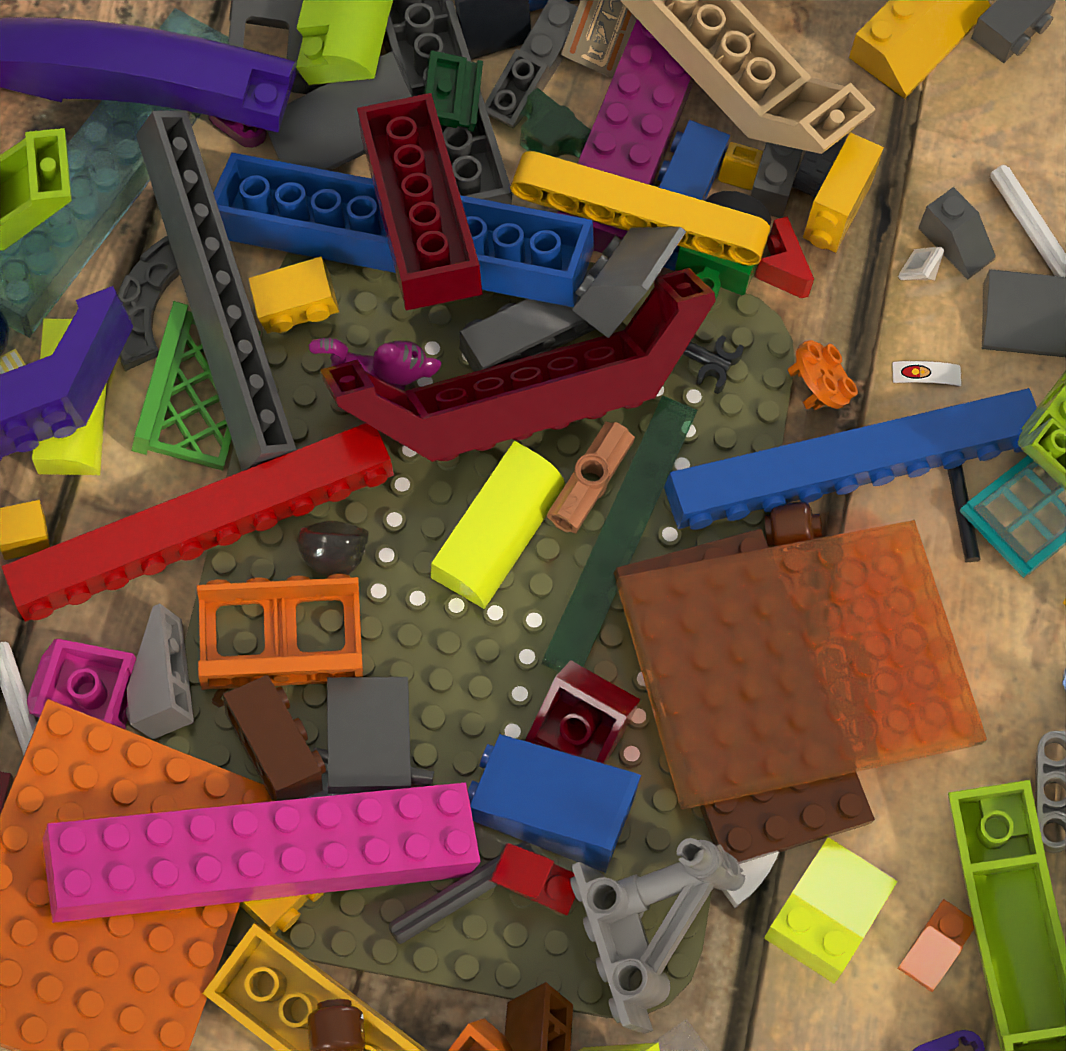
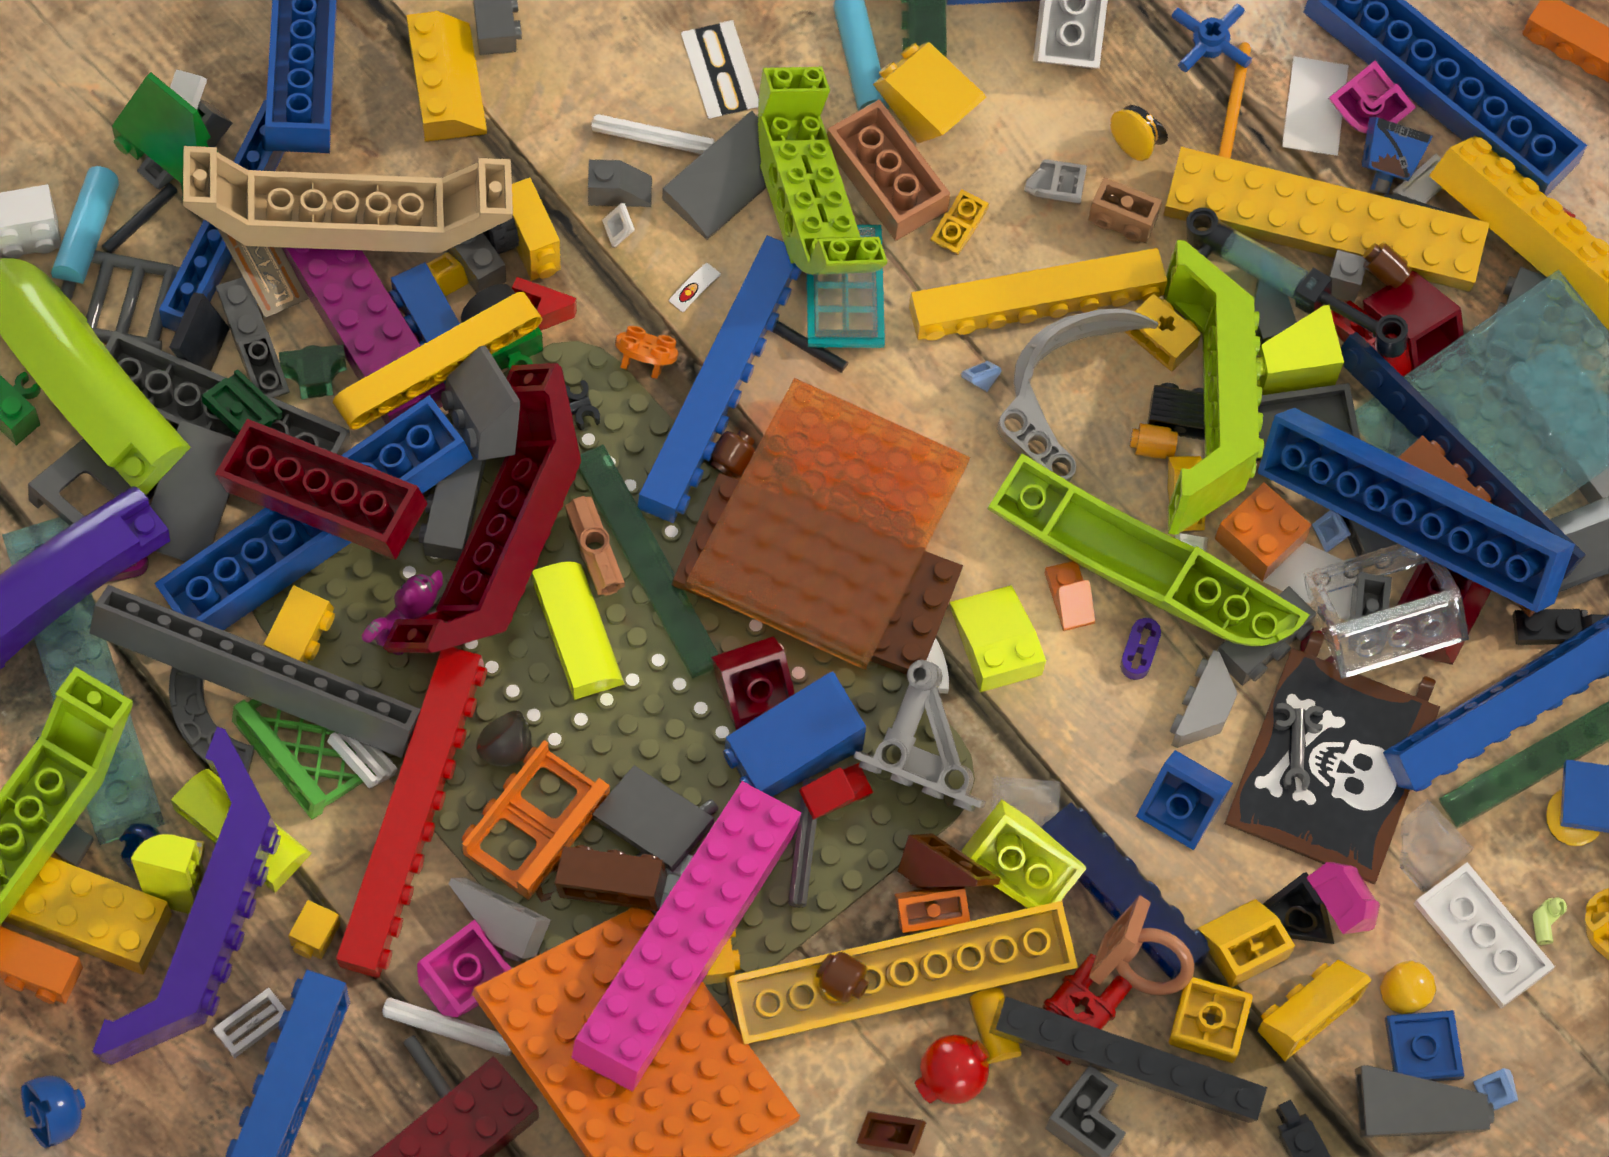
camera: 50 degrees left, 0 degrees up
(201, 467) = (373, 757): none -> white tile

